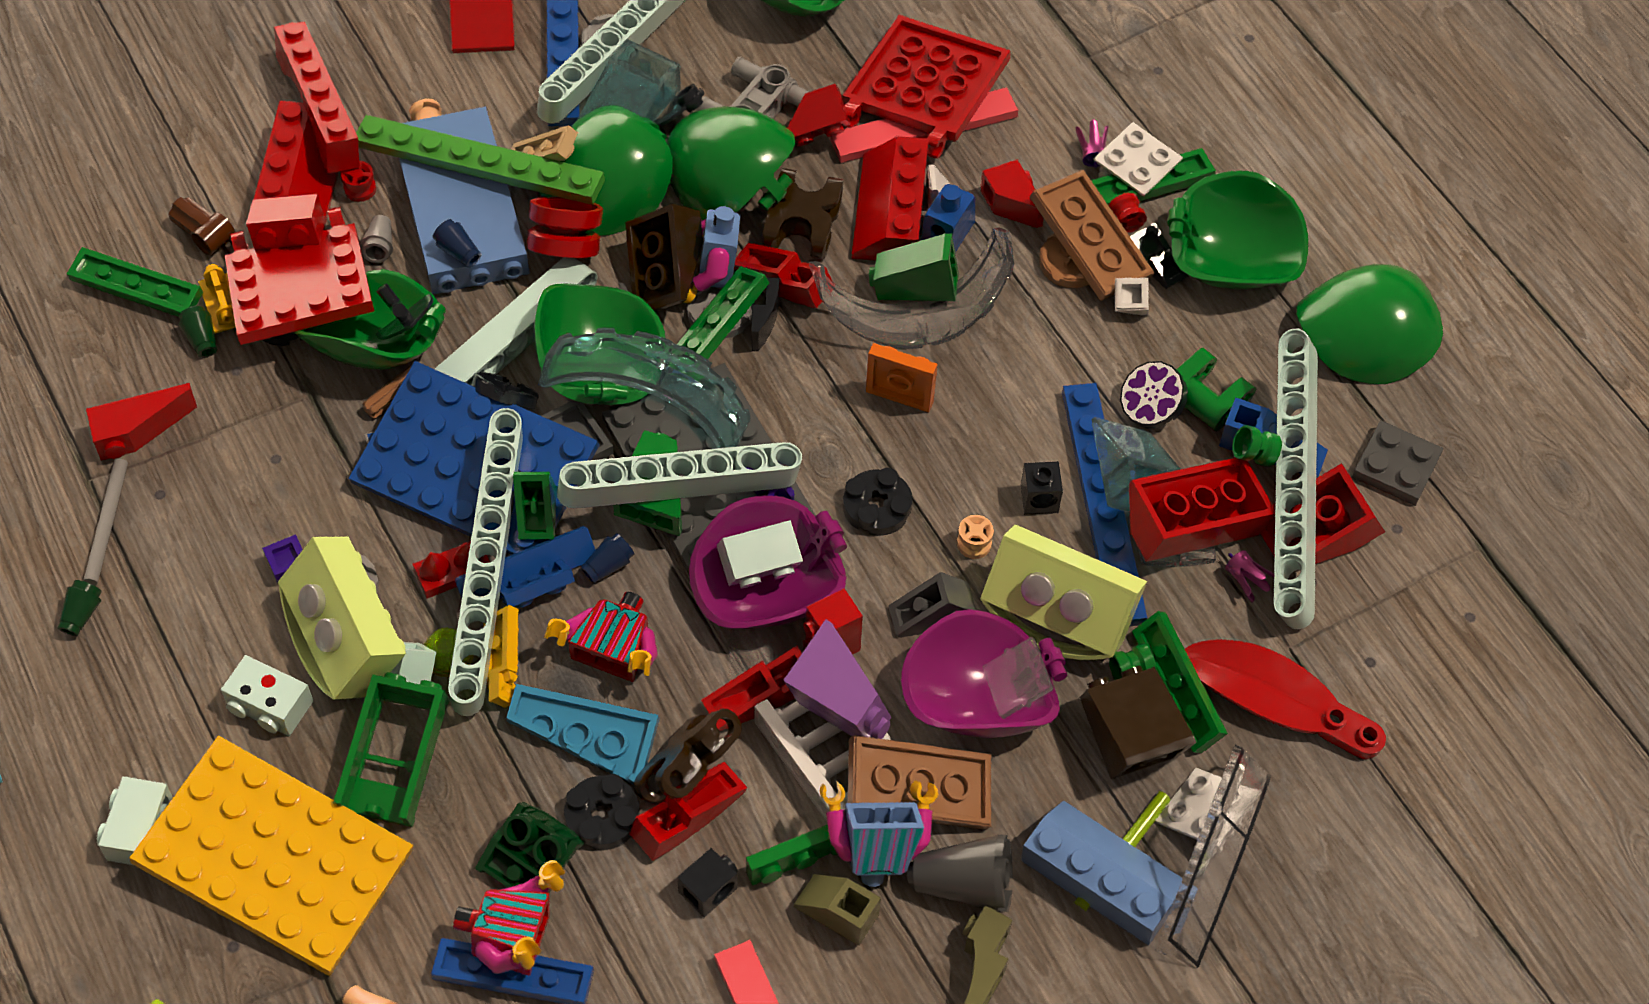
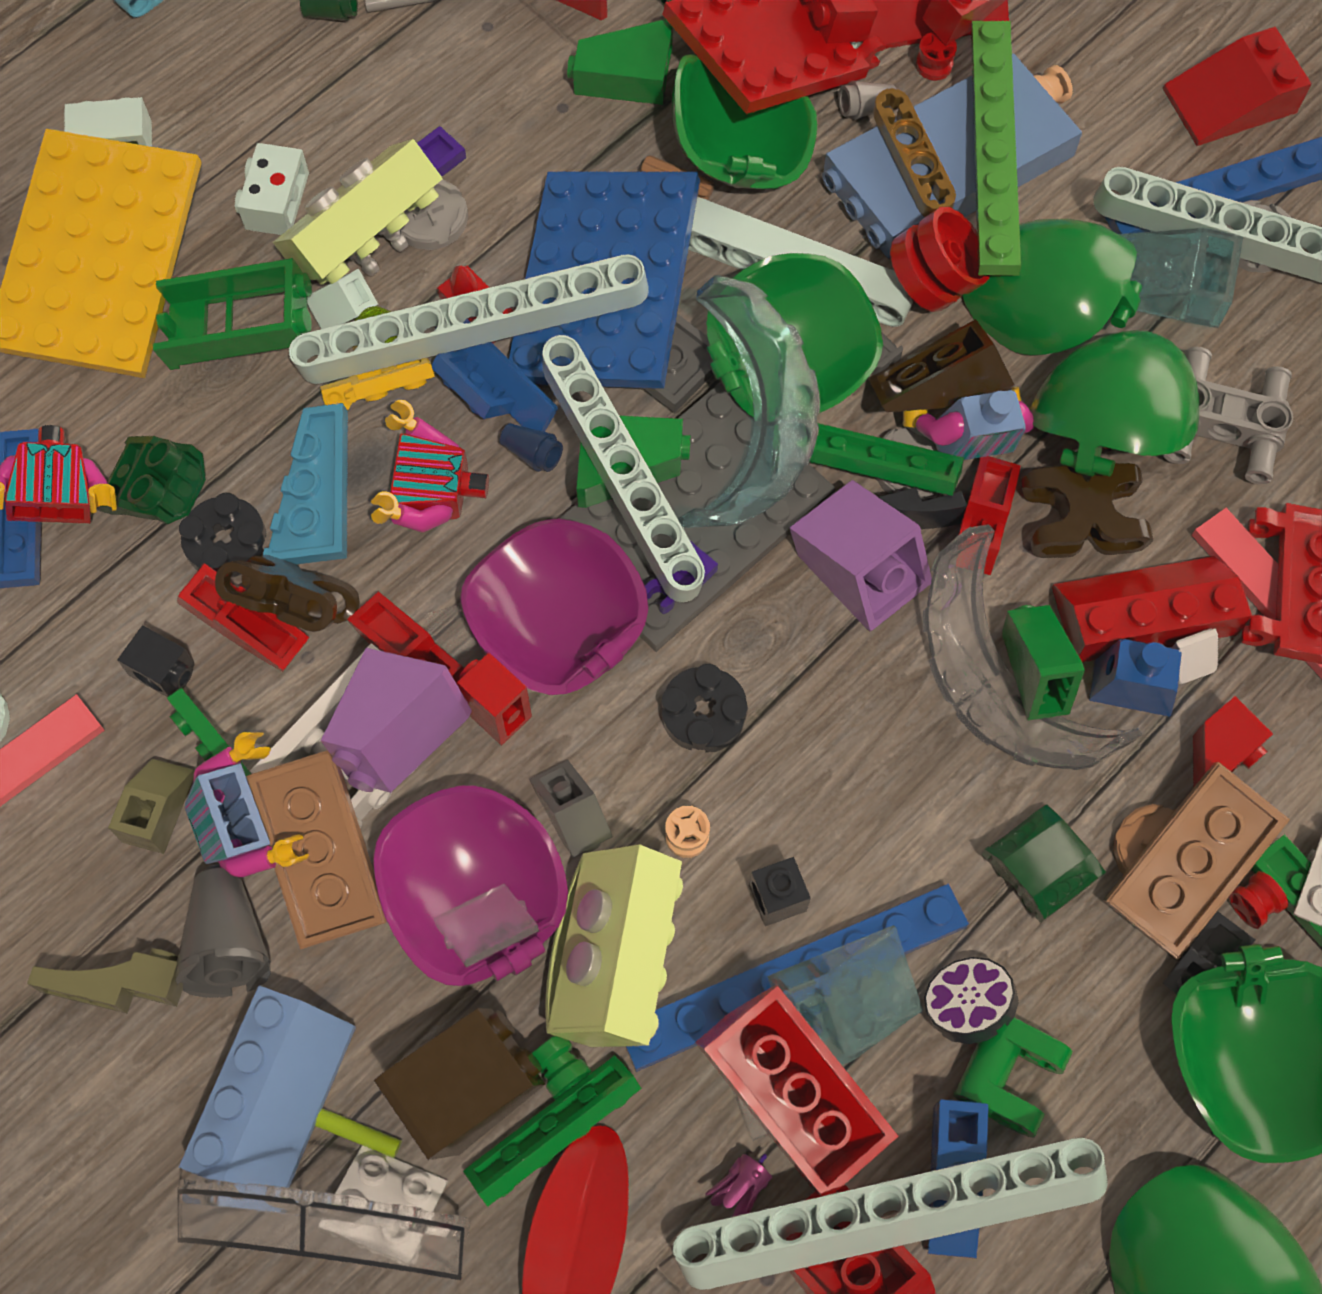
camera: 75 degrees right, 10 degrees up
(264, 393) = (624, 64): none -> green slope
(405, 317) = (760, 135): black shield -> none
(455, 241) = (870, 160): dark blue cone -> none
(460, 209) = (918, 152): none -> pearl gold beam
(501, 390) = (696, 263): black tile -> none
(535, 504) = (554, 322): green slope -> none
(551, 145) = (1039, 204): tan plate -> none
(687, 99) = (1188, 330): black plate -> none
(760, 554) = (561, 589): light aqua brick -> none
(786, 358) = (863, 553): none -> medium lavender slope
(819, 113) = (1237, 478): red slope -> none
(901, 377) = (875, 690): orange plate -> none
(1063, 326) = (1044, 862): none -> dark green slope
(1131, 295) = (1122, 937): white slope -> none
(1261, 447) = (909, 1150): green wheel -> none

